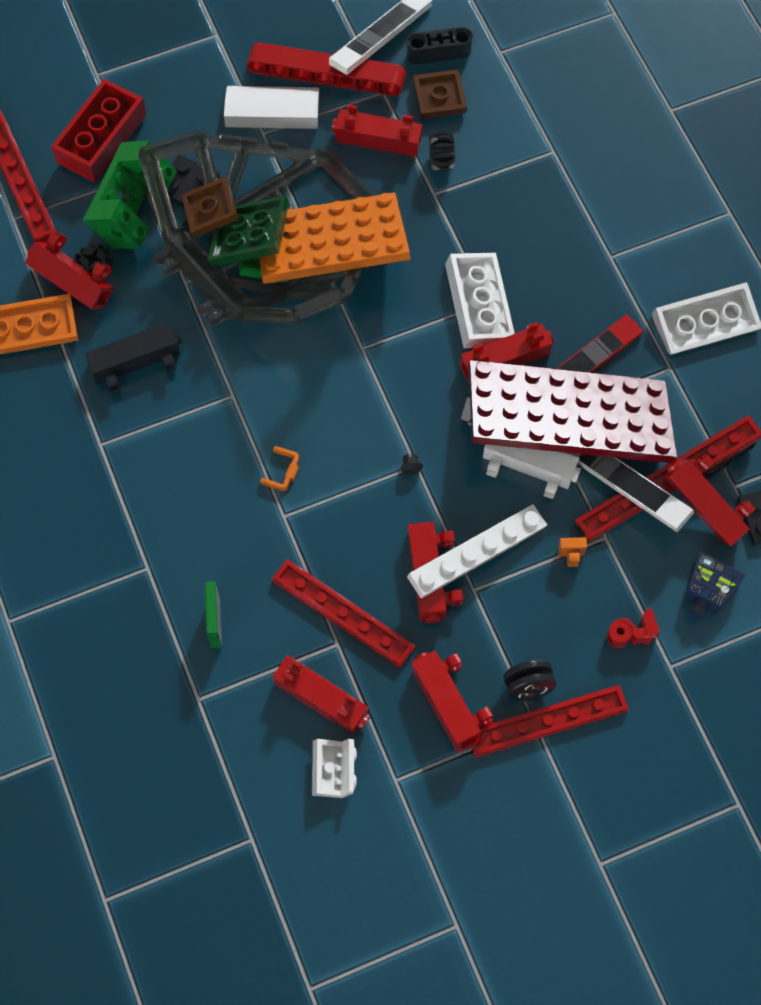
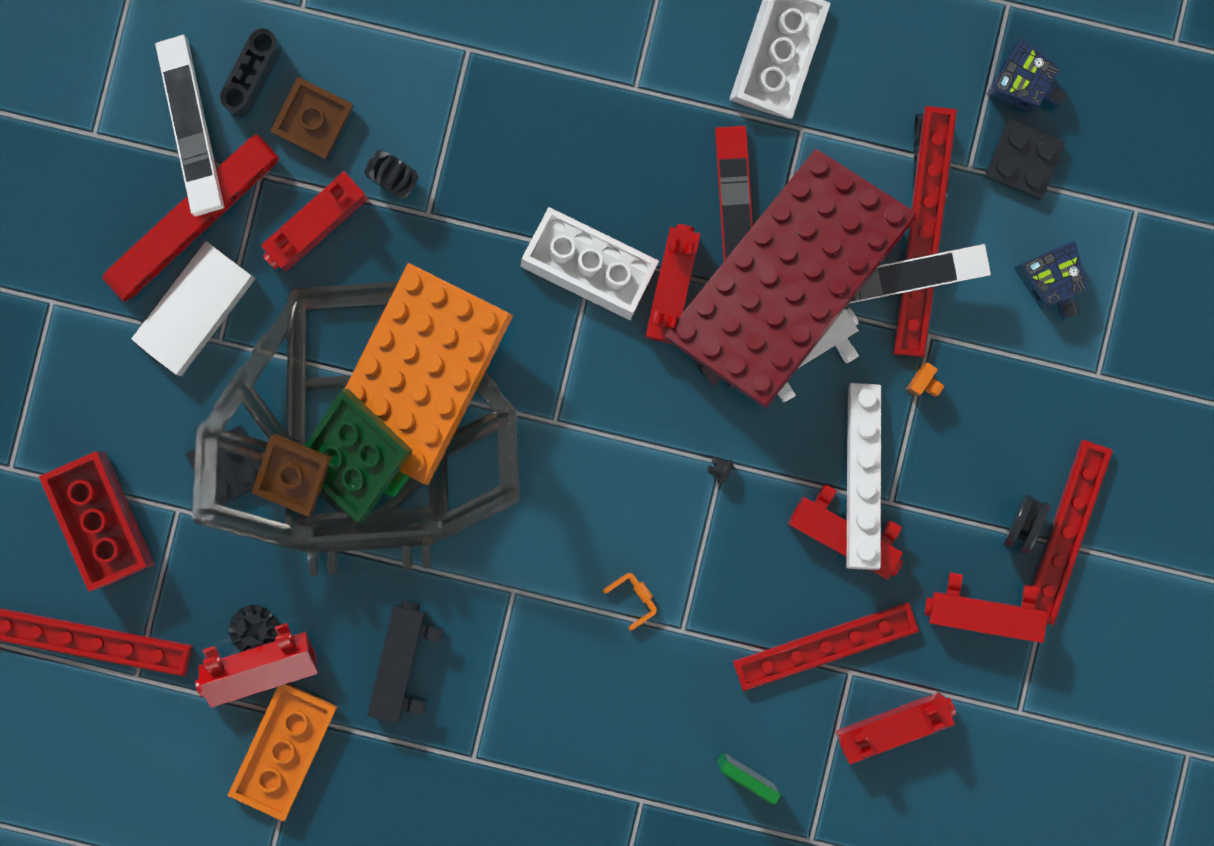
camera: 55 degrees left, 20 degrees up
(115, 218) = (217, 578): green plate -> none
(333, 768) = (973, 765): white bracket -> none
(623, 631) = (1039, 398): red leg -> none
(706, 501) = (978, 219): red brick -> none

